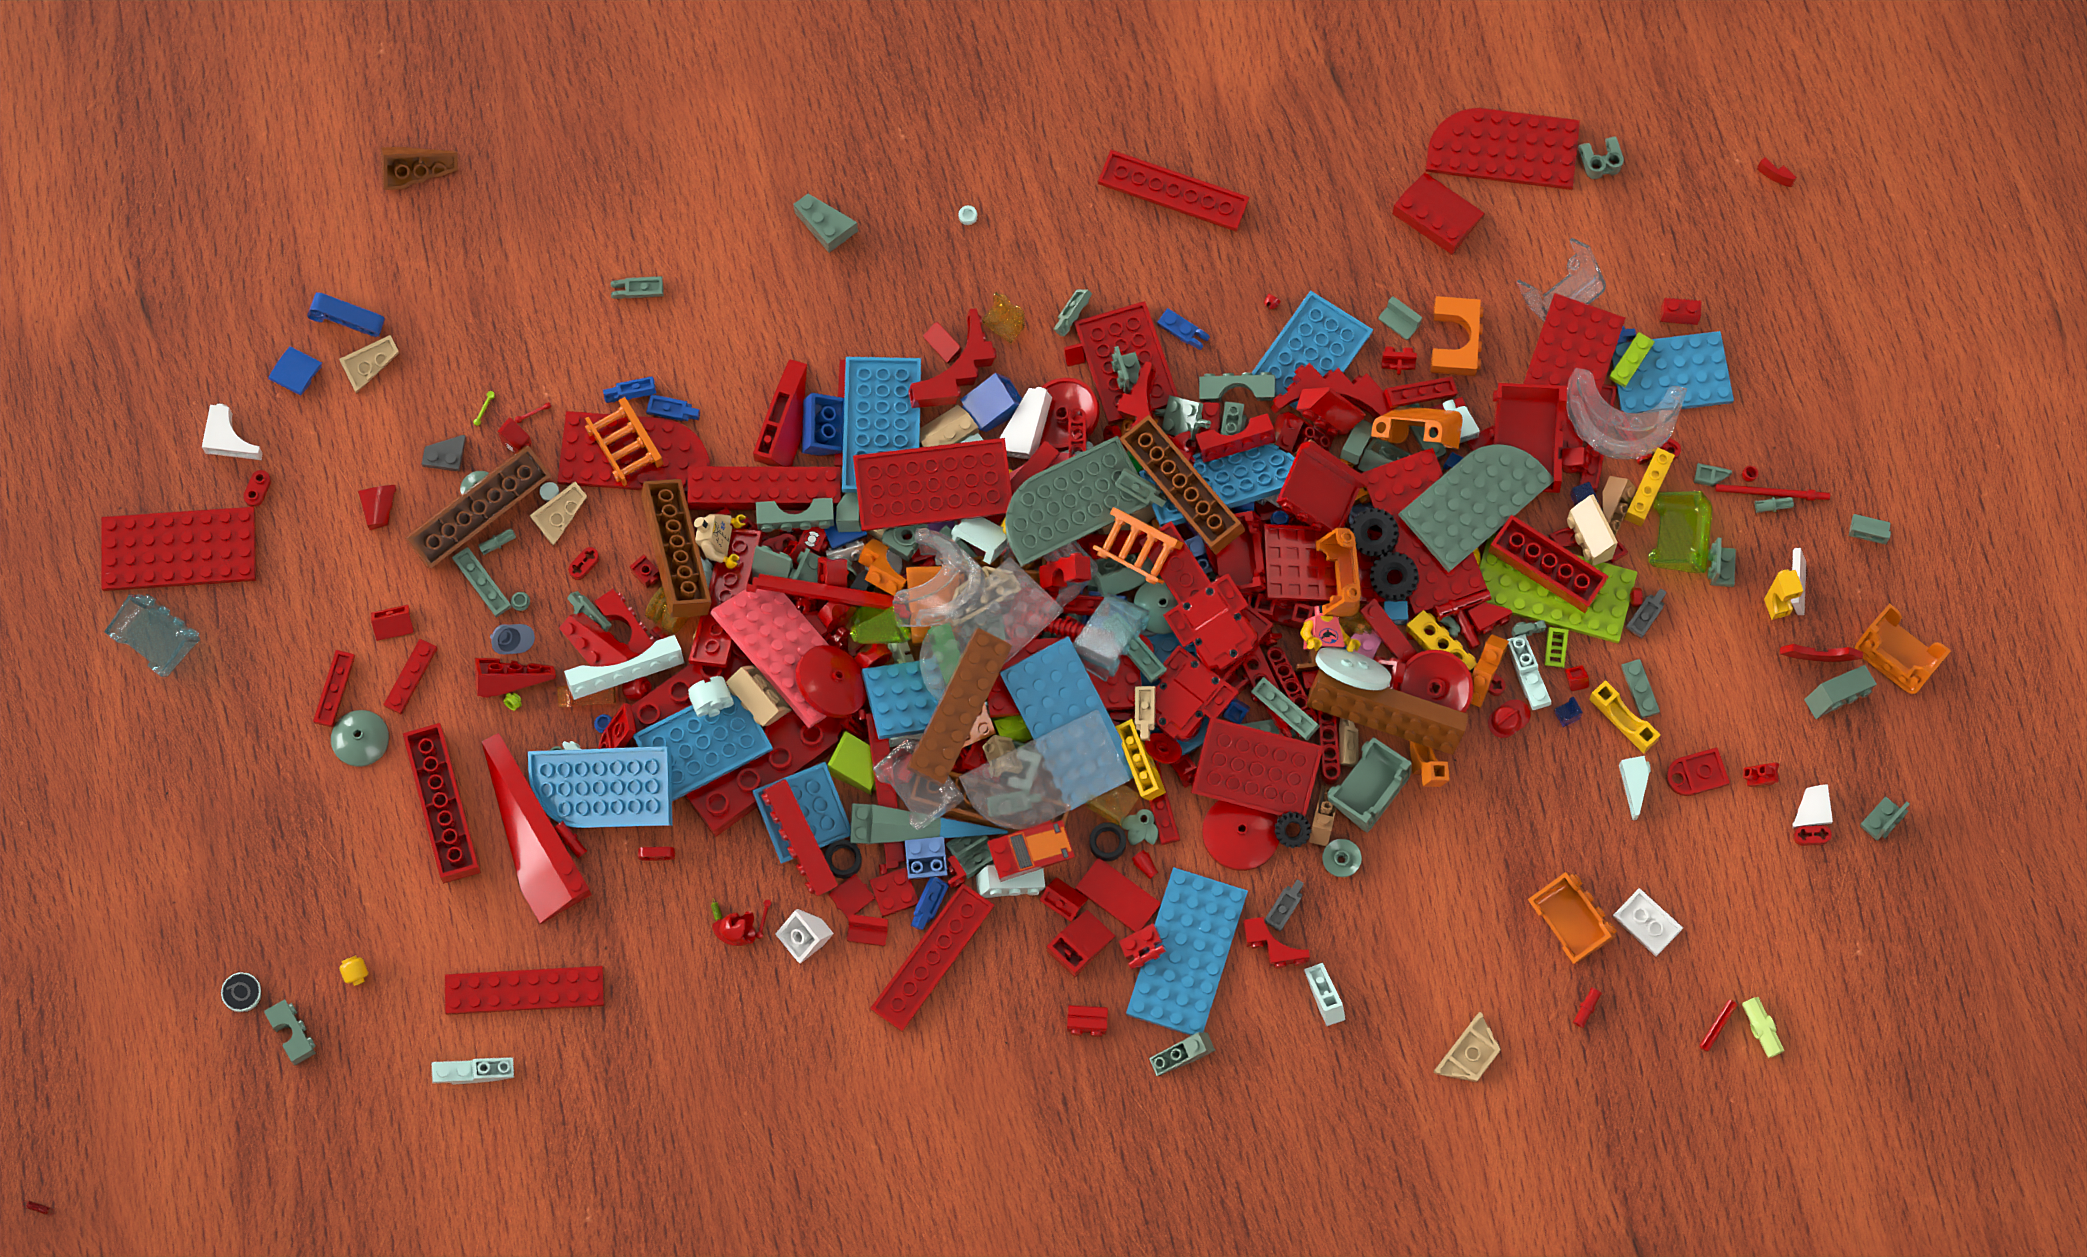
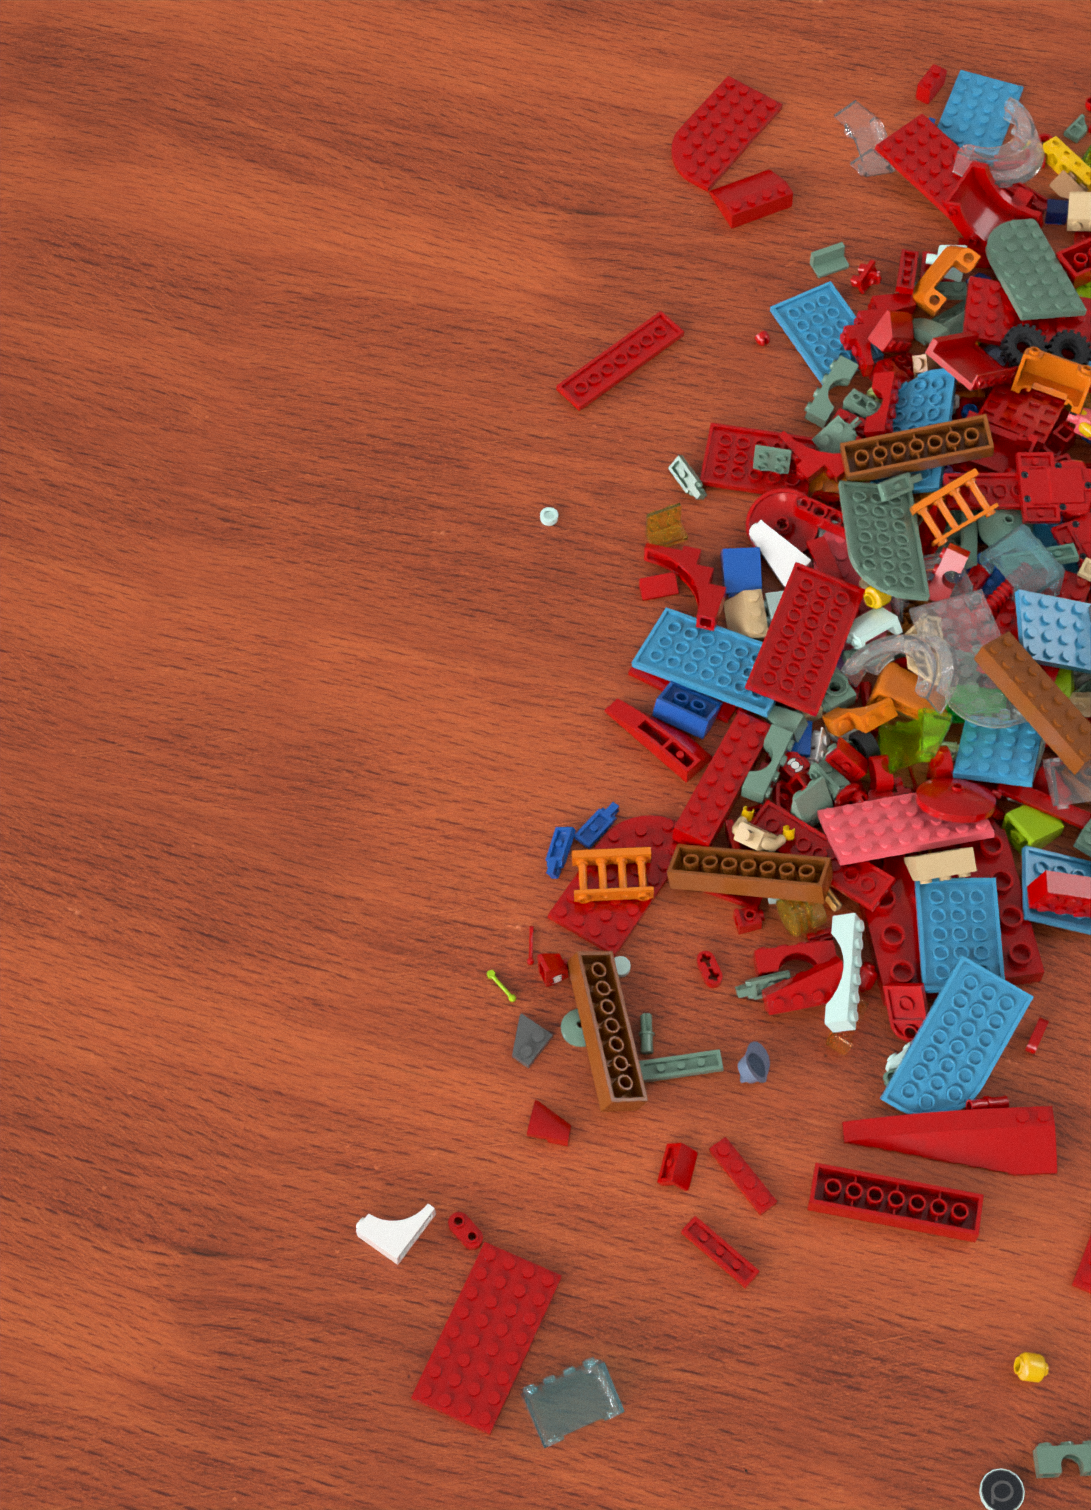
camera: 60 degrees left, 10 degrees down
(295, 370) = (362, 1137): blue slope -> none
(345, 314) = (332, 1062): blue beam -> none
(363, 749) = (781, 1266): sand green dish -> none
(368, 361) = (393, 1065): tan wing -> none
(412, 165) = (213, 938): dark orange wedge -> none
(498, 678) = (791, 1089): red wedge -> none
(512, 701) = (818, 1093): lime plate -> none
(520, 601) = (717, 1041): sand green plate -> none
(558, 512) = (646, 968): tan wing -> none
(602, 722) = (881, 1024): blue plate -> none
(638, 287) = (460, 799): sand green hinge -> none
(710, 696) = (927, 899): light aqua brick -> none
(820, 591) = (866, 765): red piece -> none
(825, 222) = (489, 623): sand green wedge -> none
(1074, 355) = (728, 496): red slope -> none
(1182, 329) = (750, 410): blue hinge -> none
(1468, 314) = (857, 215): orange arch -> none
(1603, 162) = (776, 73): sand green piece -> none
(1631, 359) = (955, 128): lime plate -> none

